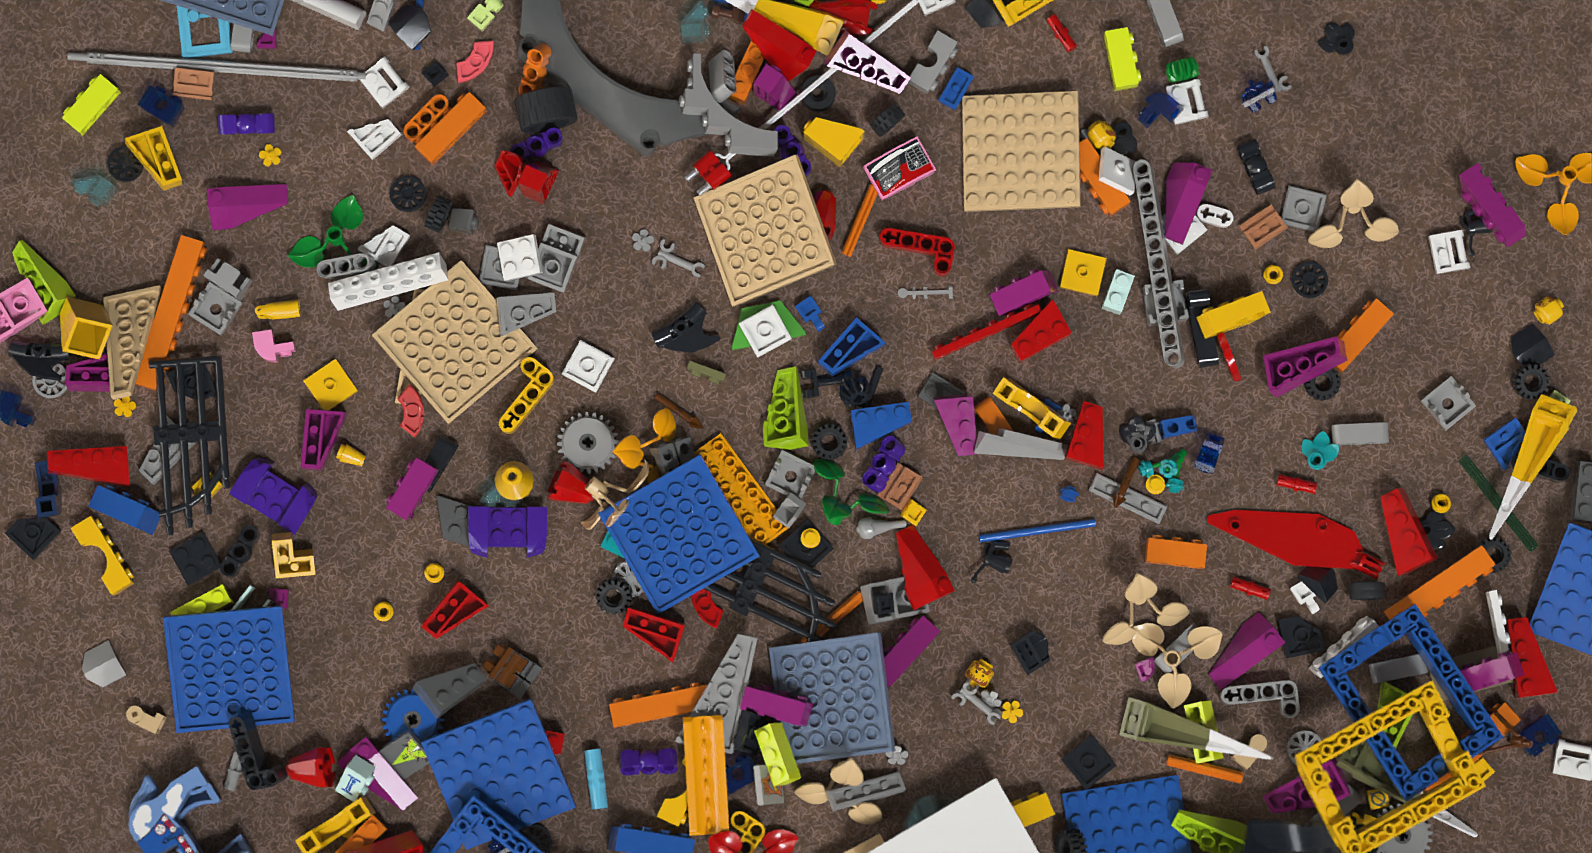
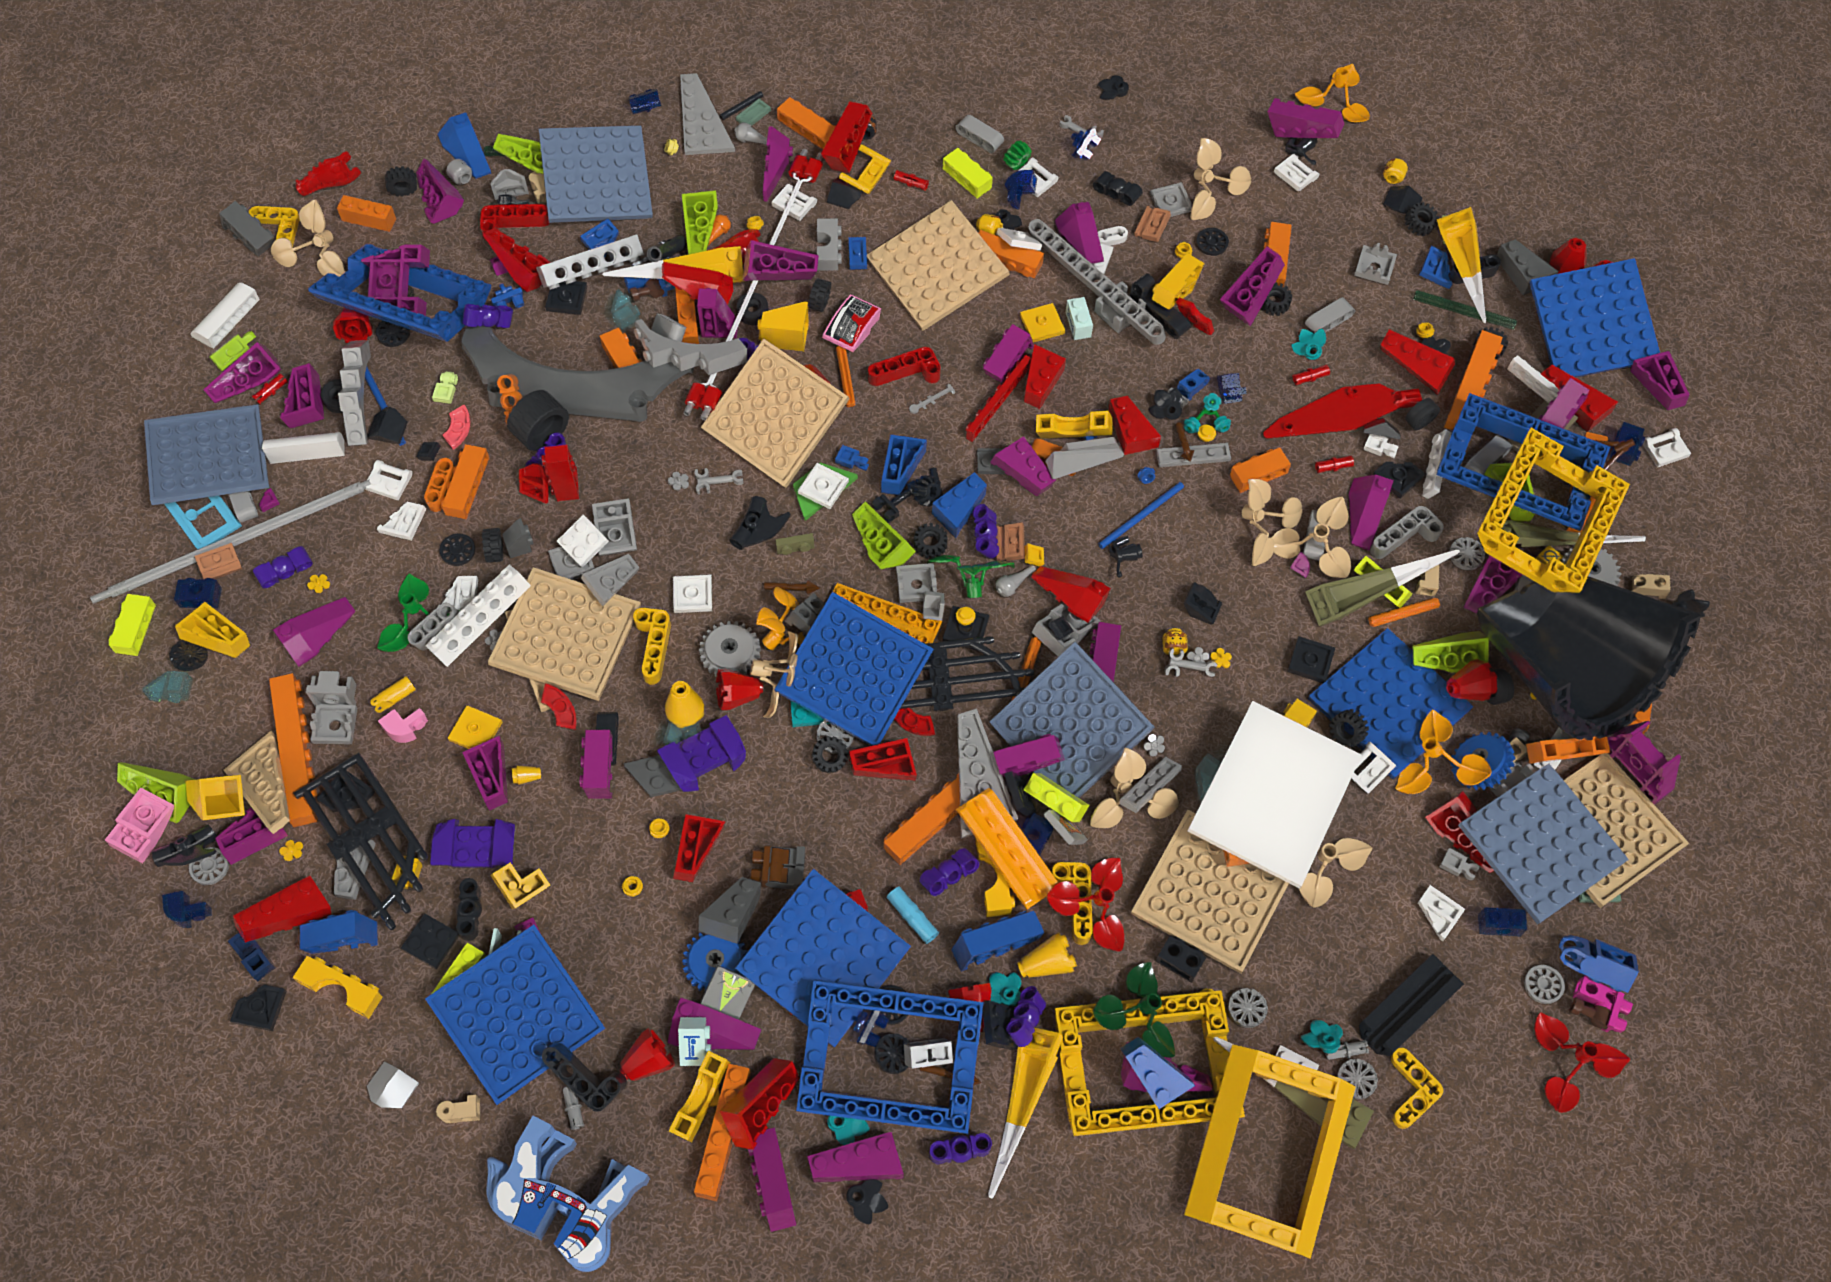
camera: 30 degrees left, 20 degrees down
(666, 72) = (618, 348): none -> orange brick

